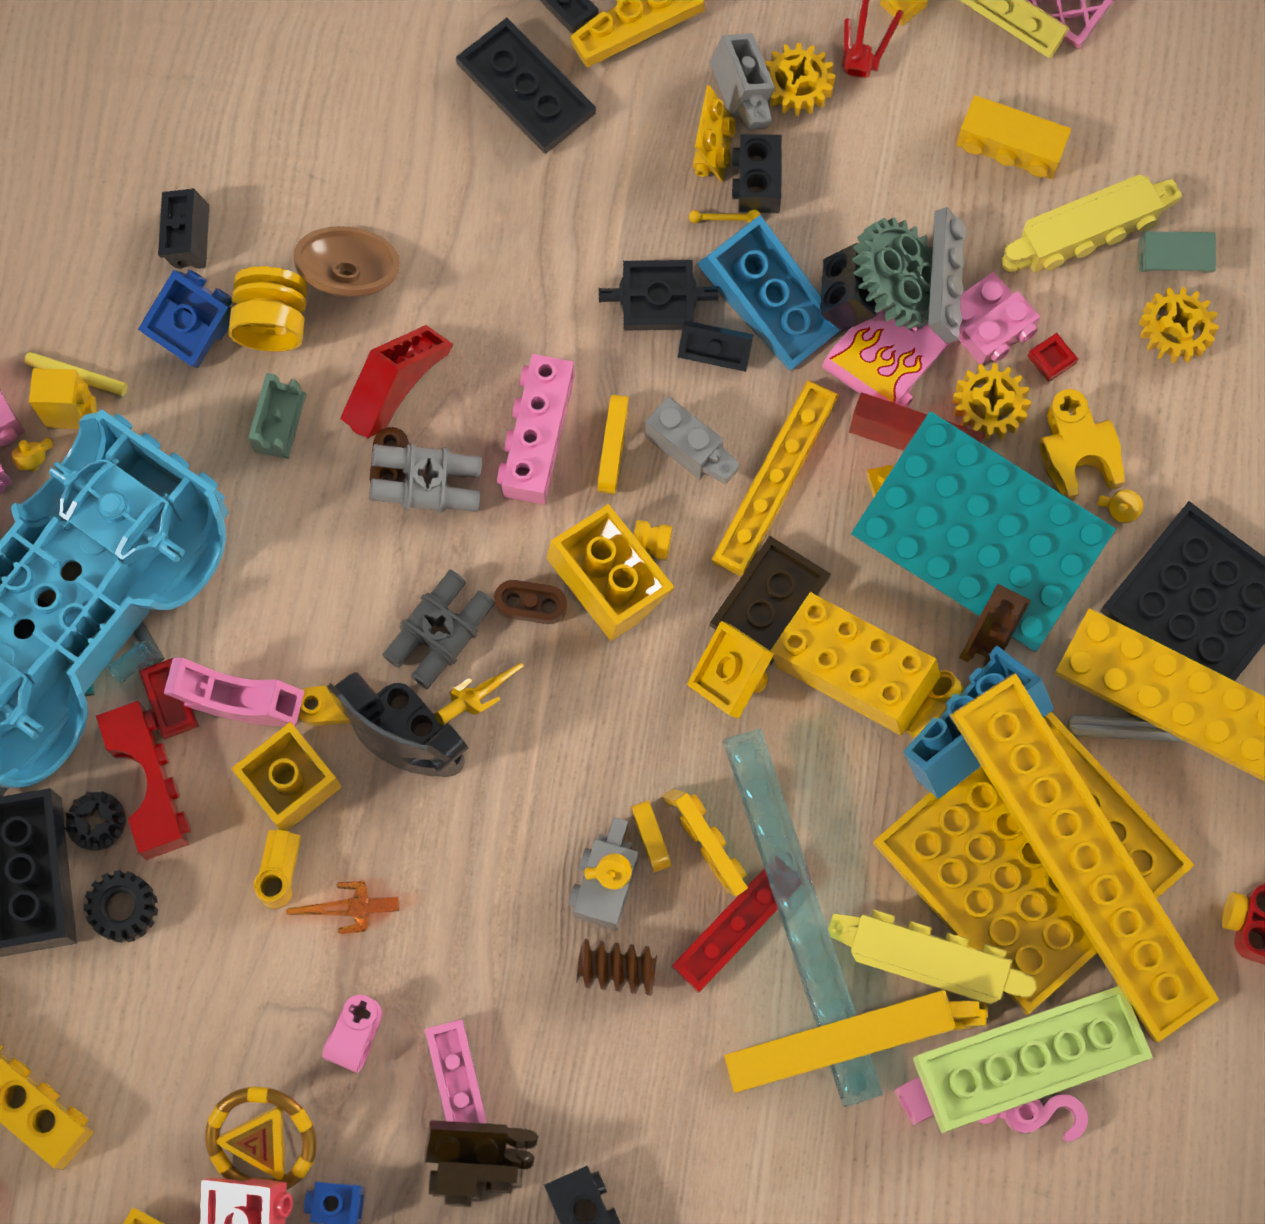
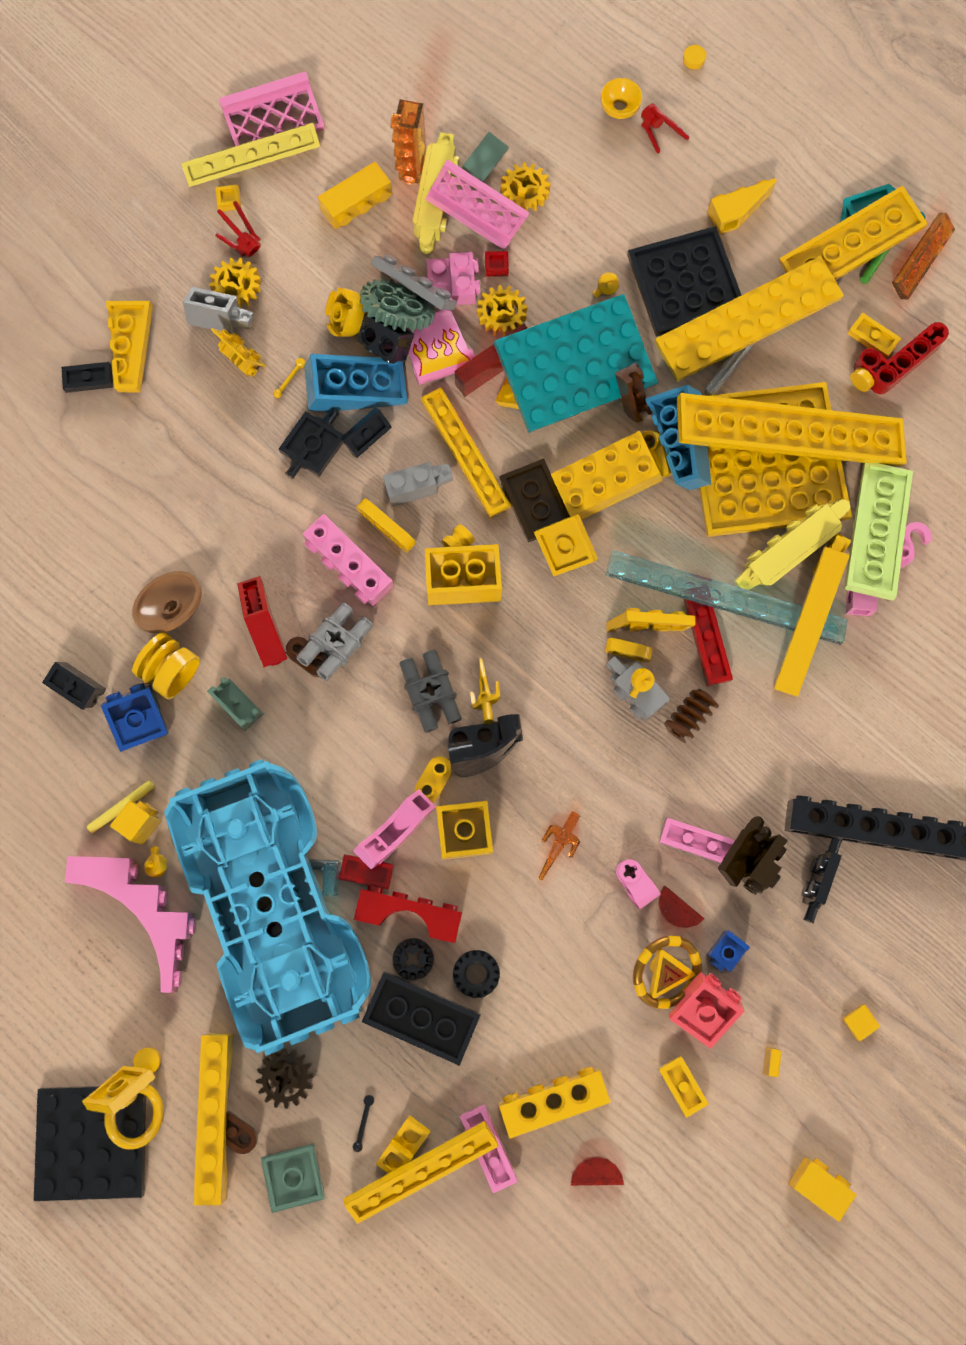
camera: 60 degrees left, 5 degrees up
(278, 865) = (510, 867): yellow piece -> none
(352, 1109) = (676, 910): none -> clear red tile
(526, 85) = (126, 433): black plate -> none
(532, 599) = (448, 630): reddish brown plate -> none
(761, 173) = (282, 338): black brick -> none
(849, 220) = (344, 312): none -> yellow cylinder
(1077, 443) = (555, 283): yellow piece -> none
(1096, 278) = (466, 209): none -> bright pink fence
(1118, 143) = (409, 140): none -> clear orange brick

